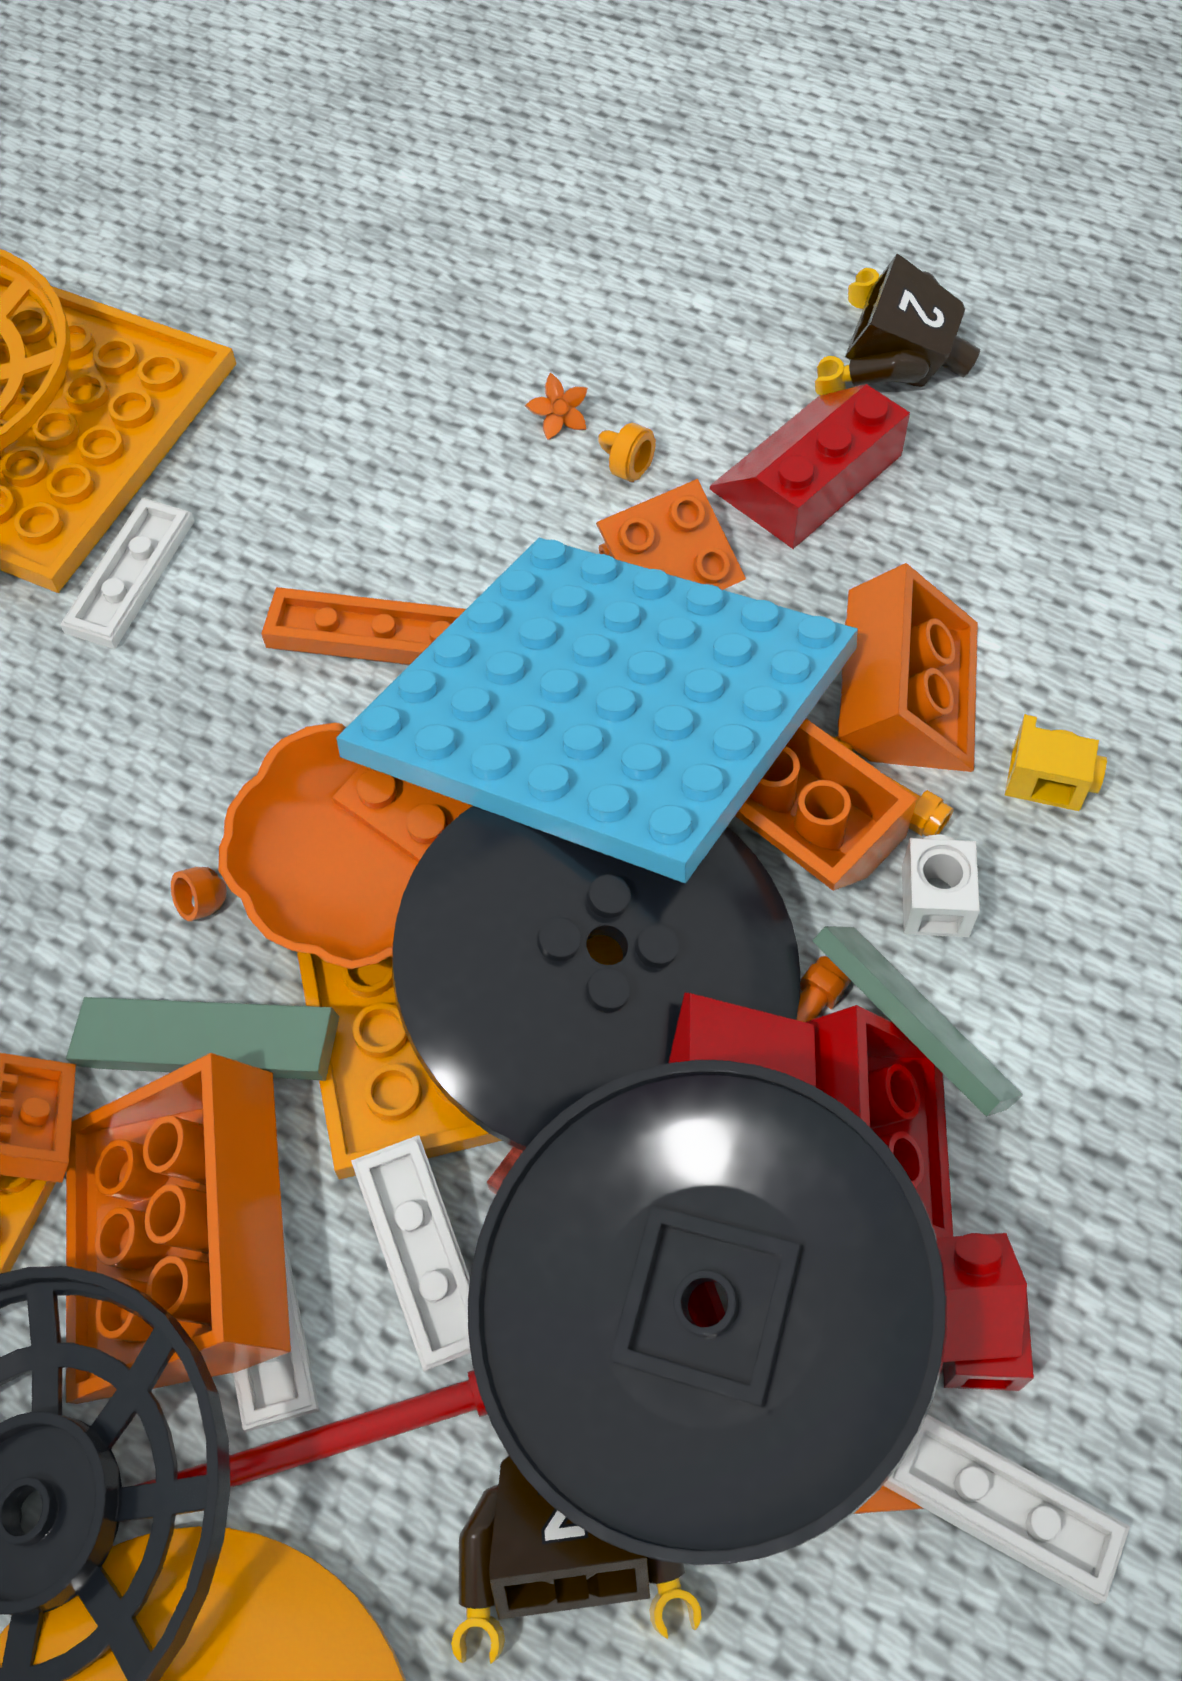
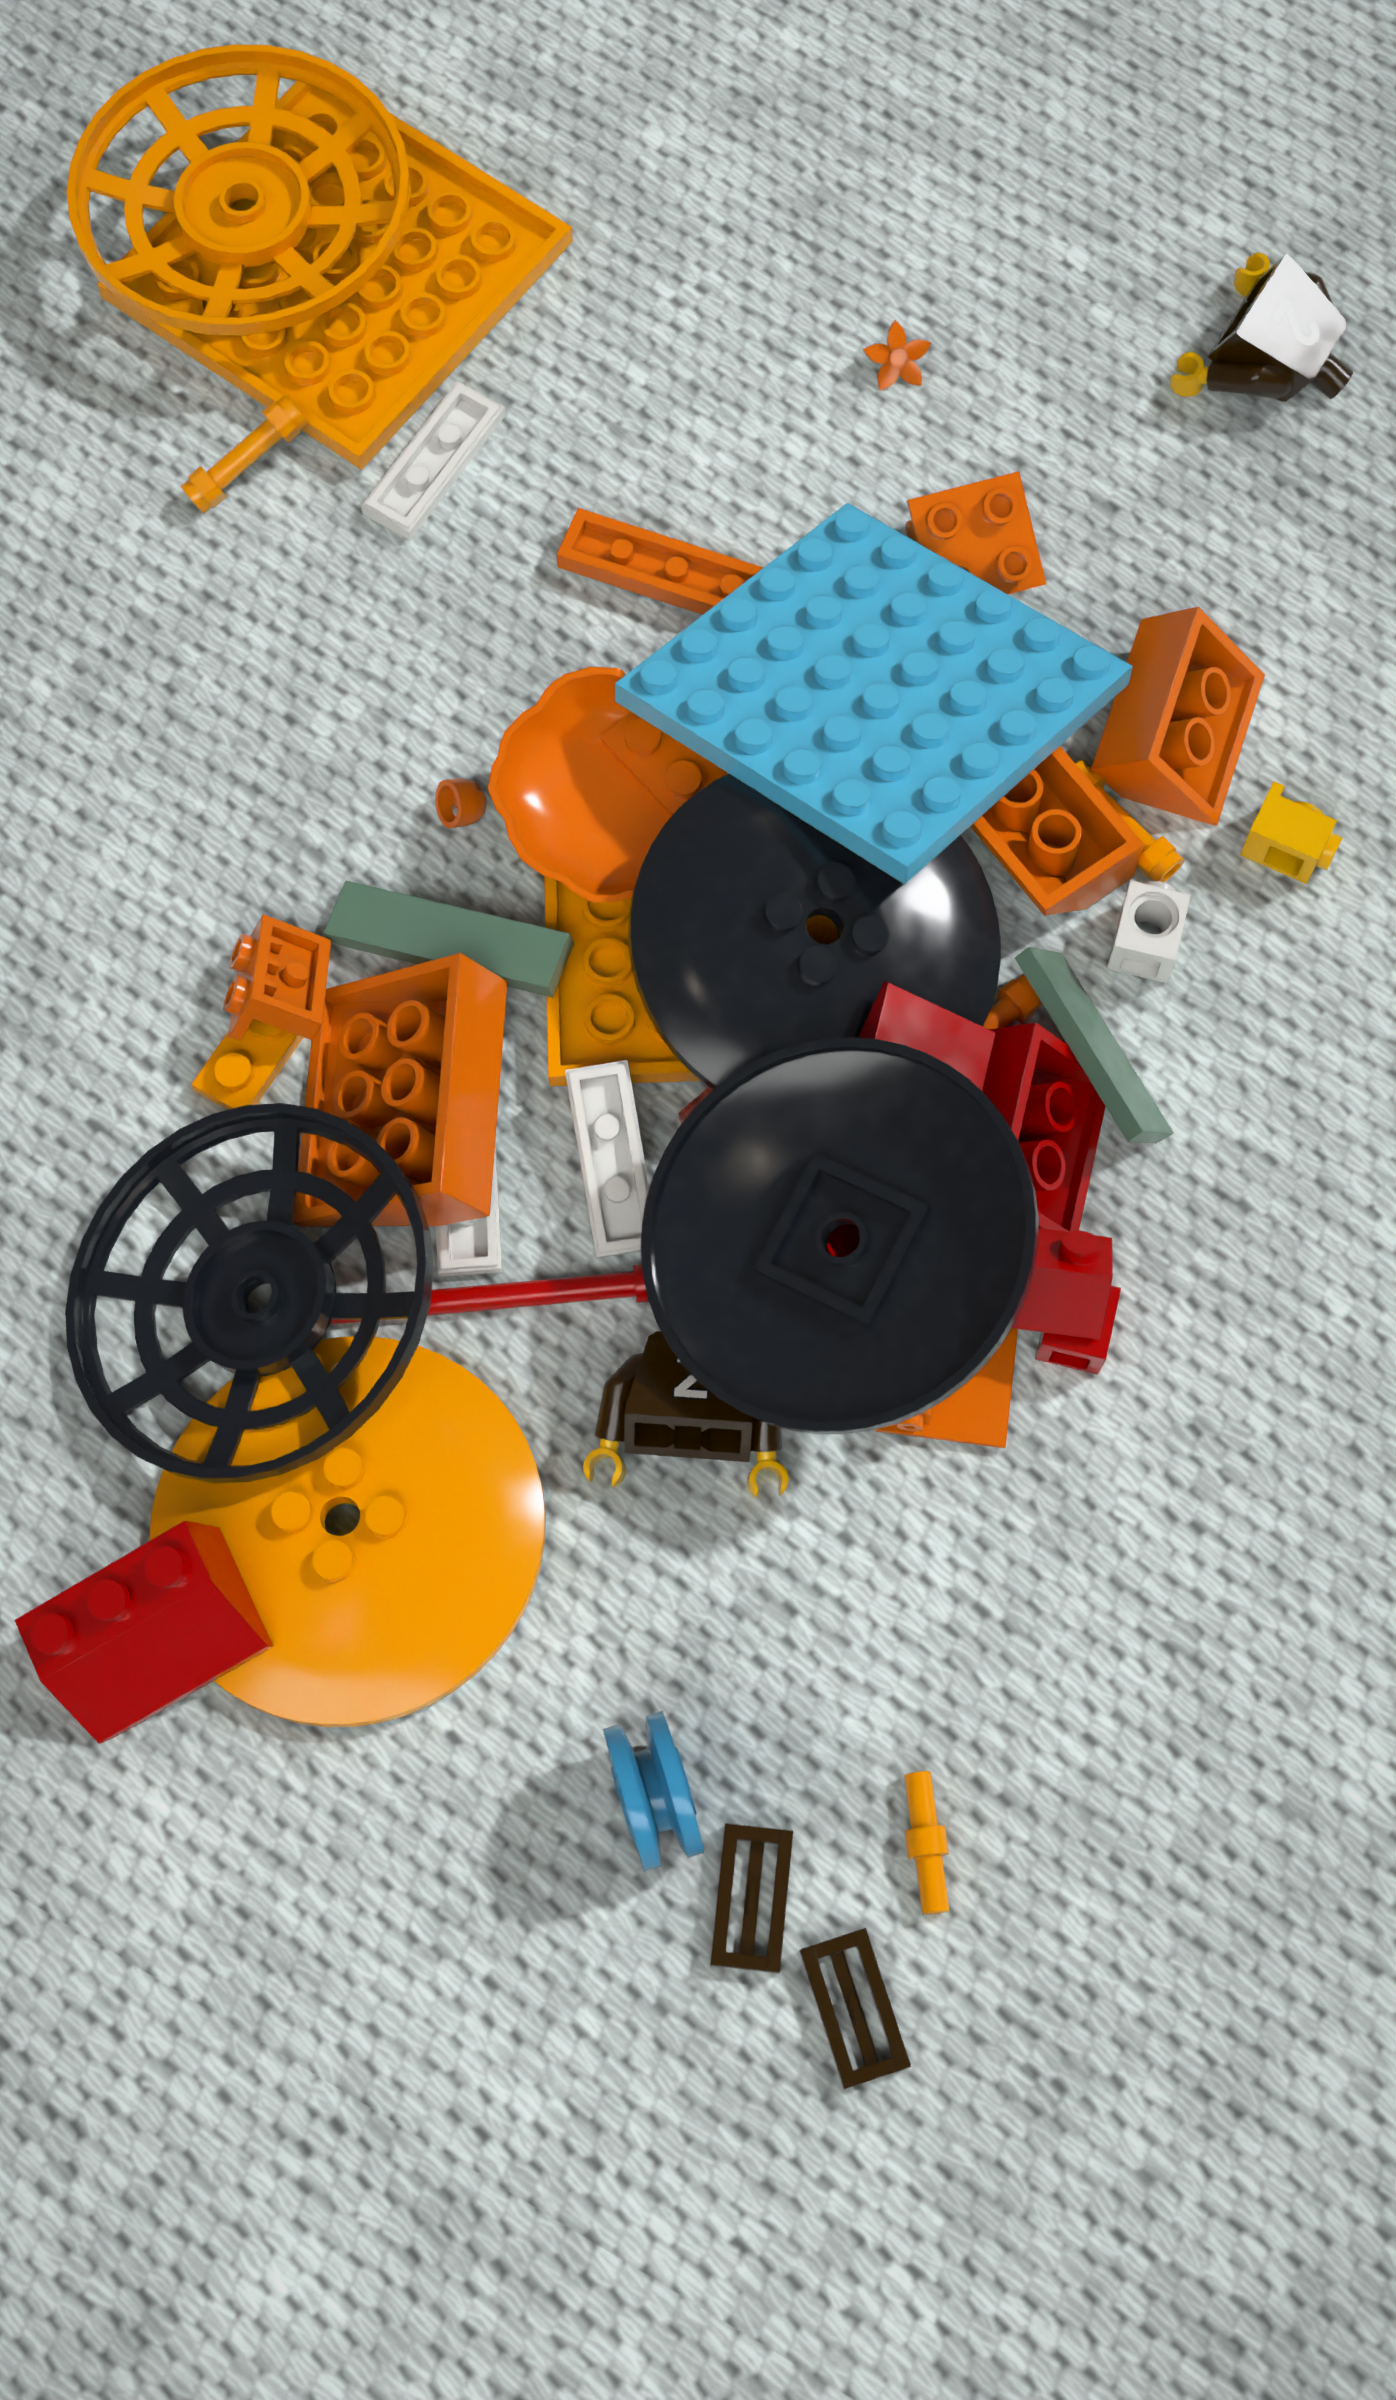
camera: 10 degrees right, 10 degrees up
(629, 450) = (959, 422): light orange tile -> none
(816, 462) = (1146, 470): red slope -> none
(1011, 1509) = (1058, 1455): white tile -> none

